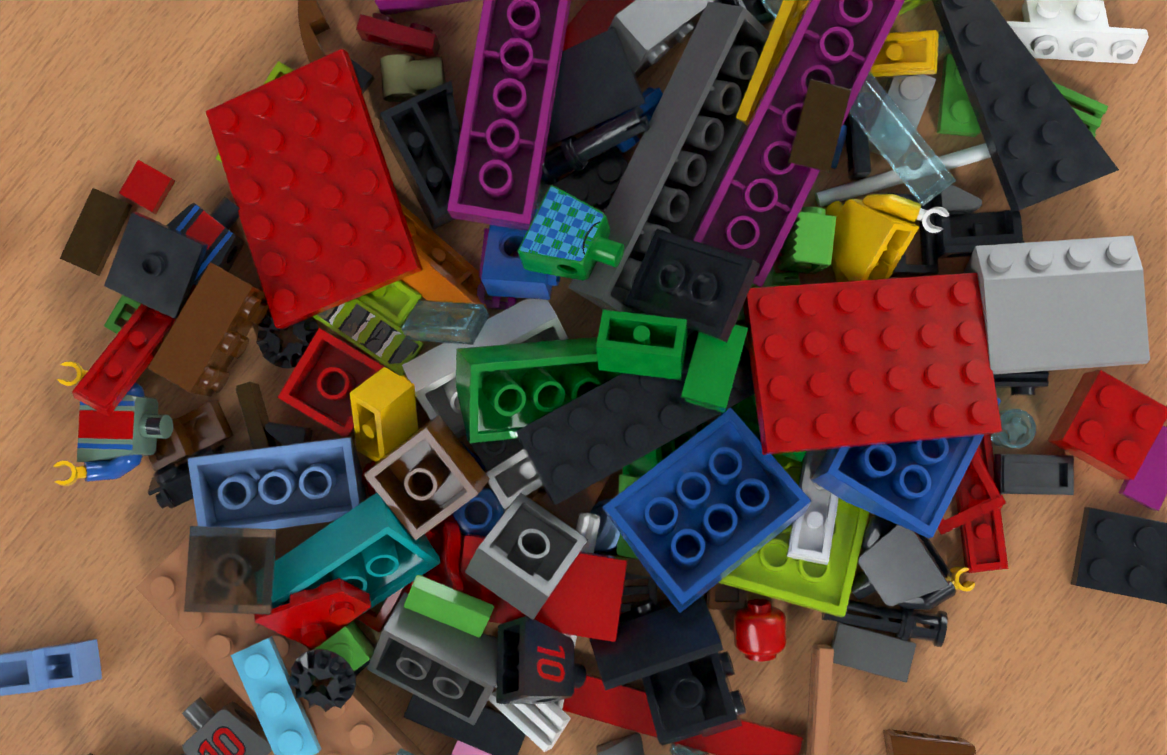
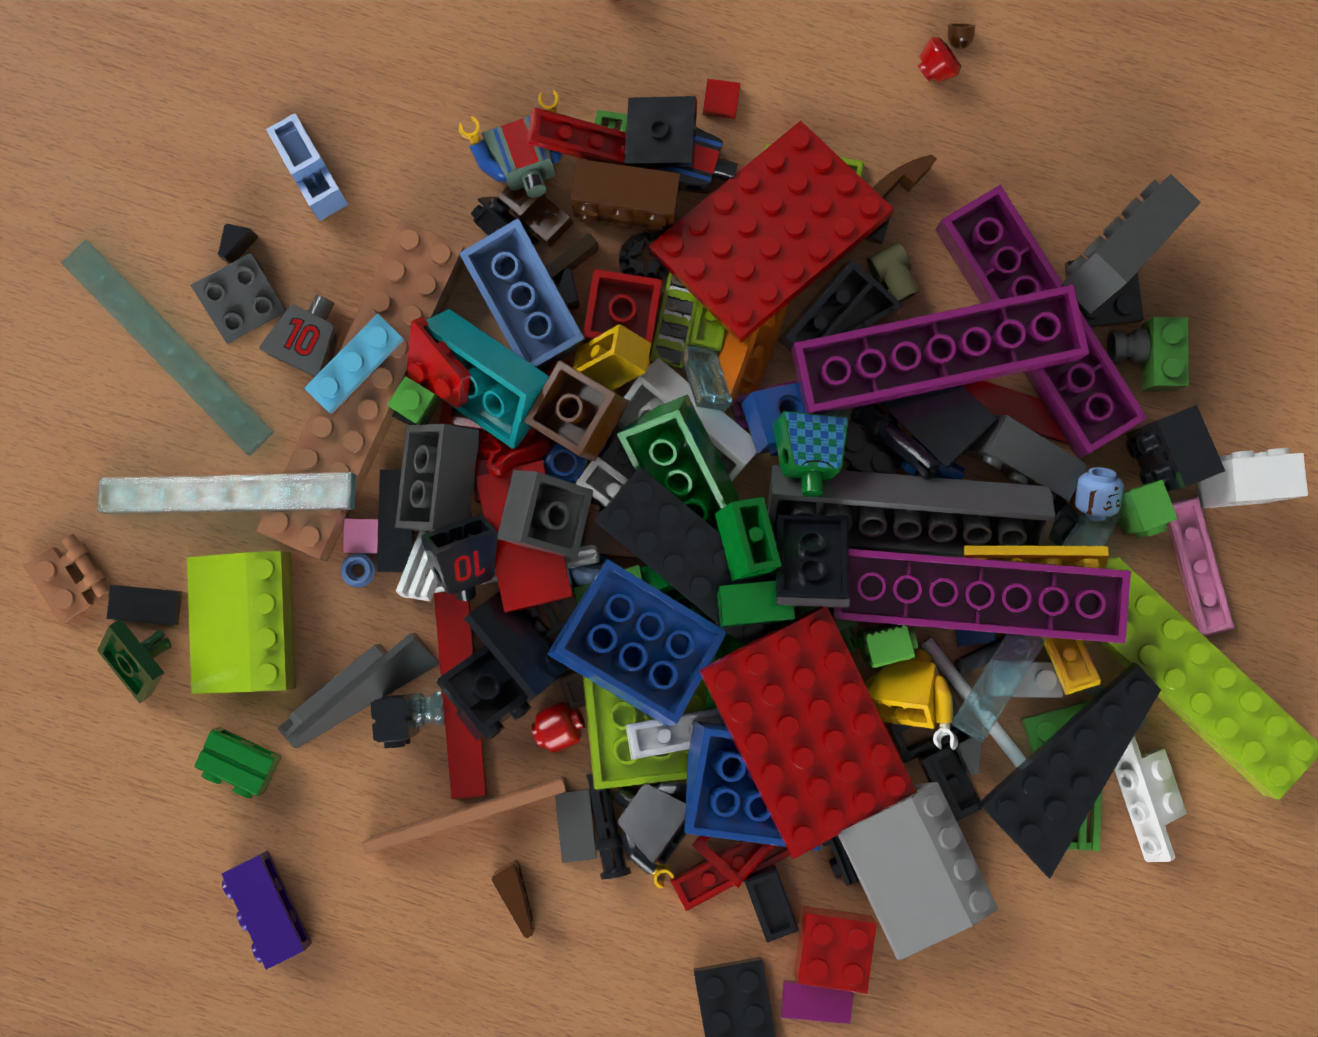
camera: 65 degrees right, 0 degrees up
(96, 231) = (669, 73): dark brown tile -> none
(230, 570) = (444, 286): clear smoke slope -> none
(323, 665) = (397, 387): black gear -> none
(385, 32) = (922, 236): dark red plate -> none
(448, 606) = (481, 468): bright green tile -> none
(819, 125) = (981, 612): dark brown tile -> none
(1021, 429) = (801, 878): clear light blue wheel -> none

